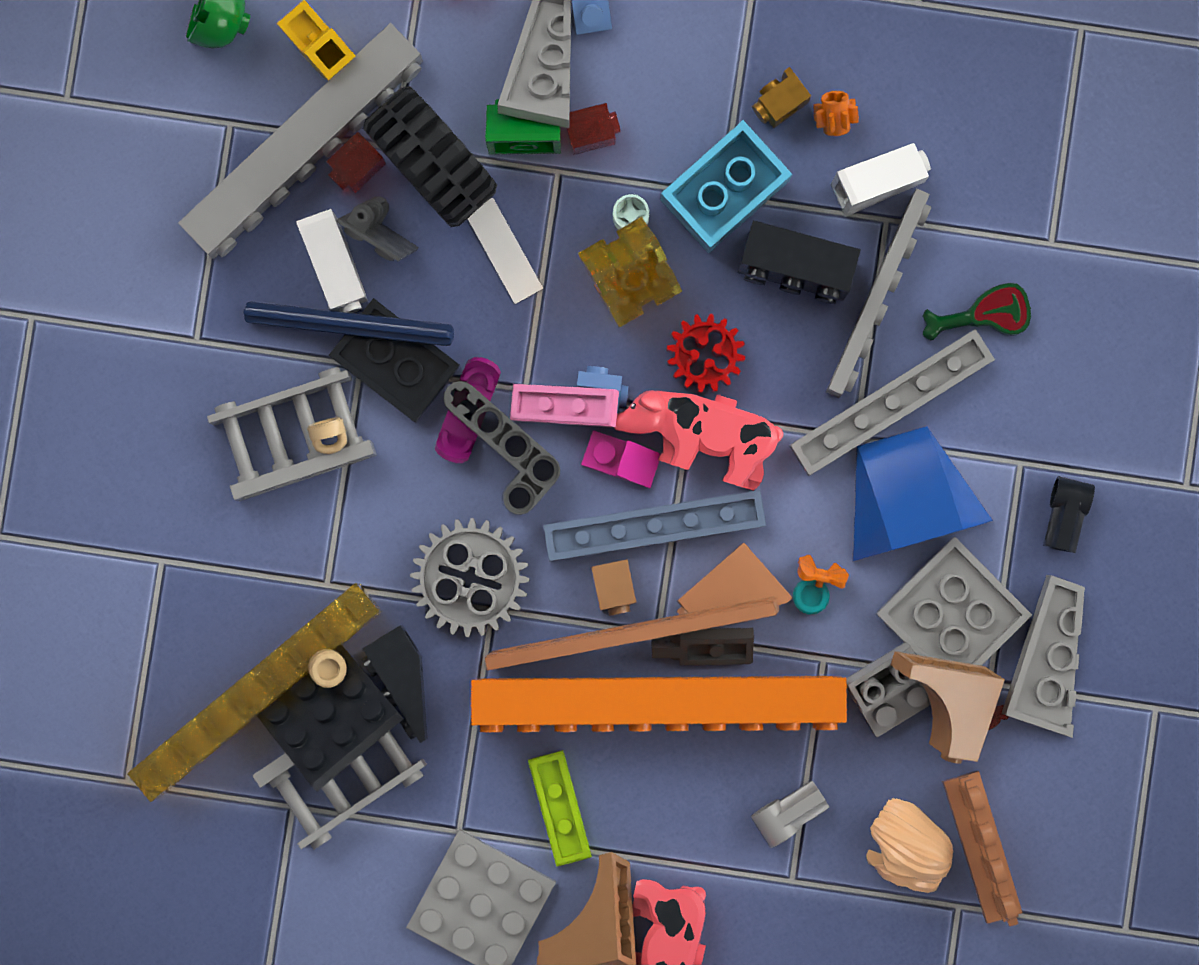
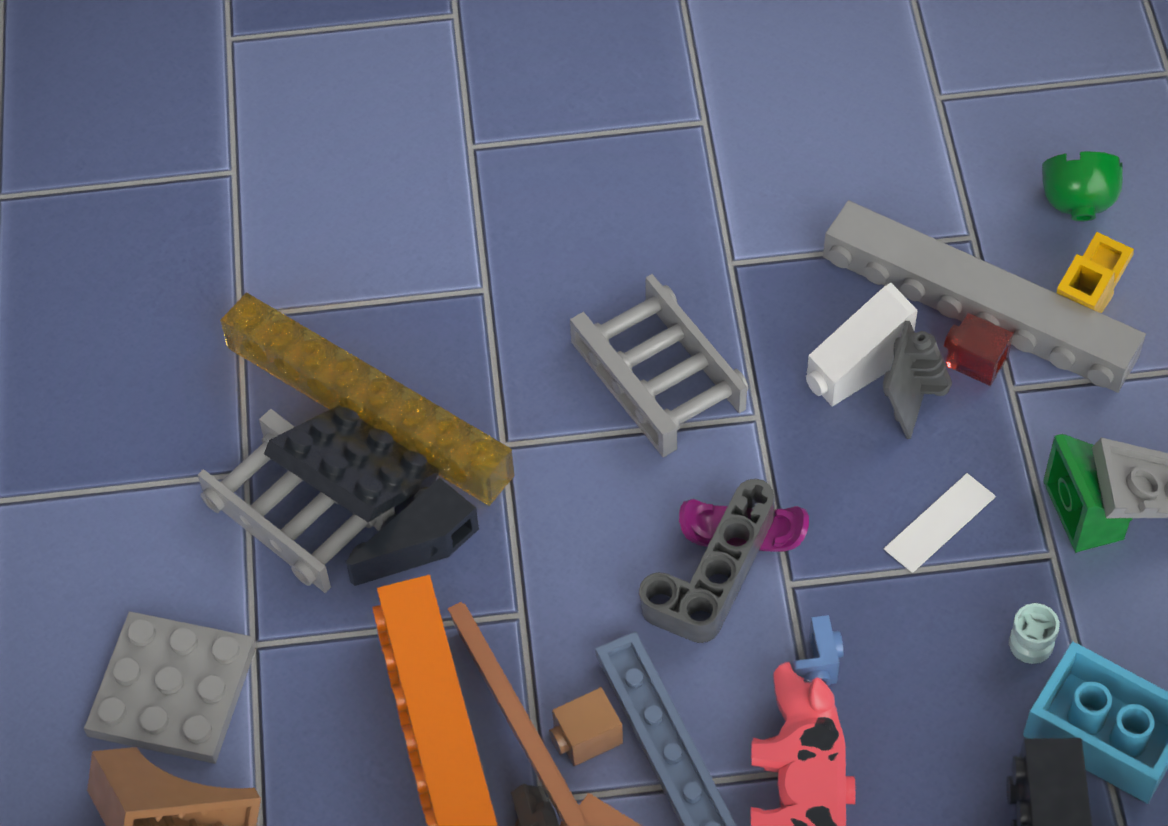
camera: 75 degrees right, 30 degrees down
(327, 429) = (674, 380): tan tile -> none
(327, 668) = (407, 441): tan tile -> none
(349, 323) = (800, 381): dark blue axle -> none
(399, 371) = (775, 438): black plate -> none
(430, 156) = (1013, 389): black tyre -> none
(480, 545) = (592, 574): light grey gear -> none
(559, 808) = (304, 742): lime tile -> none
(564, 405) = (783, 616): bright pink tile -> none
(592, 128) = (1116, 566): clear red brick -> none
(621, 459) = (740, 702): dark pink slope -> none
(630, 272) = (965, 637): clear yellow brick -> none
(726, 348) = (878, 769): red gear -> none

